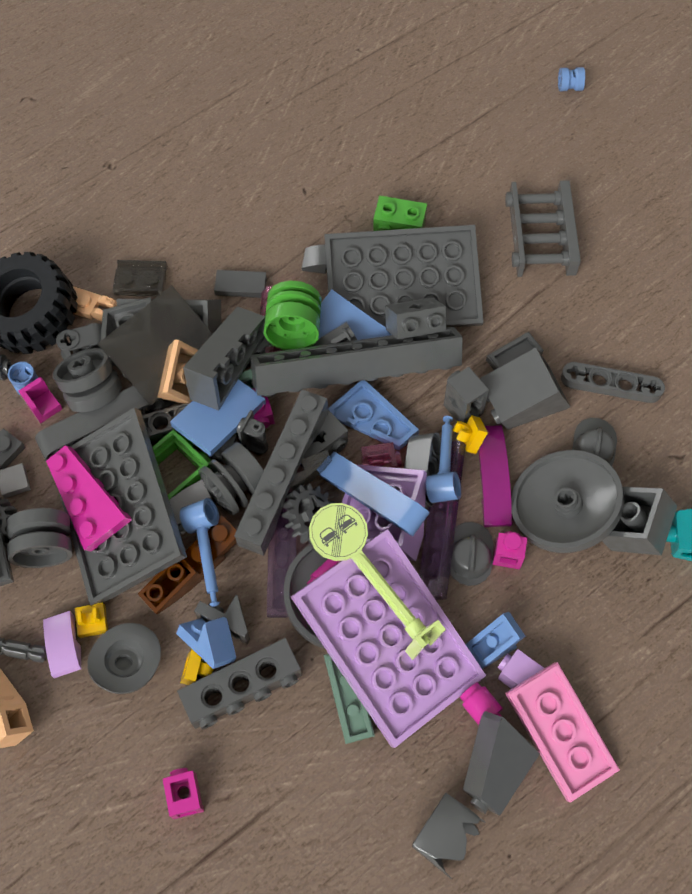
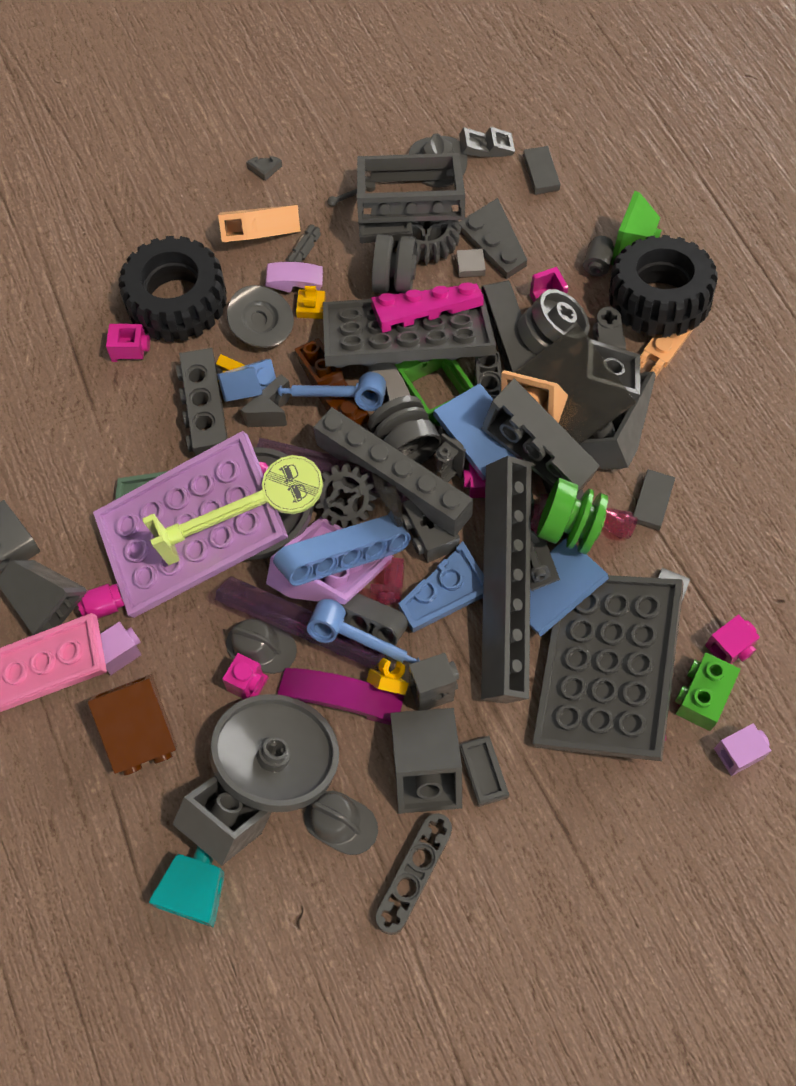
camera: 105 degrees right, 0 degrees up
(21, 375) = (578, 280): medium blue wheel -> none
(76, 738) = (165, 262): none -> black tyre
(140, 278) = (683, 404): clear smoke plate -> none
(353, 209) = (733, 640): none -> dark pink brick
(415, 318) = (543, 650): dark grey brick -> none
(437, 191) = (743, 749): none -> lavender brick
(495, 640) = (157, 635): medium blue slope -> none
(564, 217) = (636, 890): dark grey fence -> none
(582, 630) = (133, 725): none -> reddish brown slope

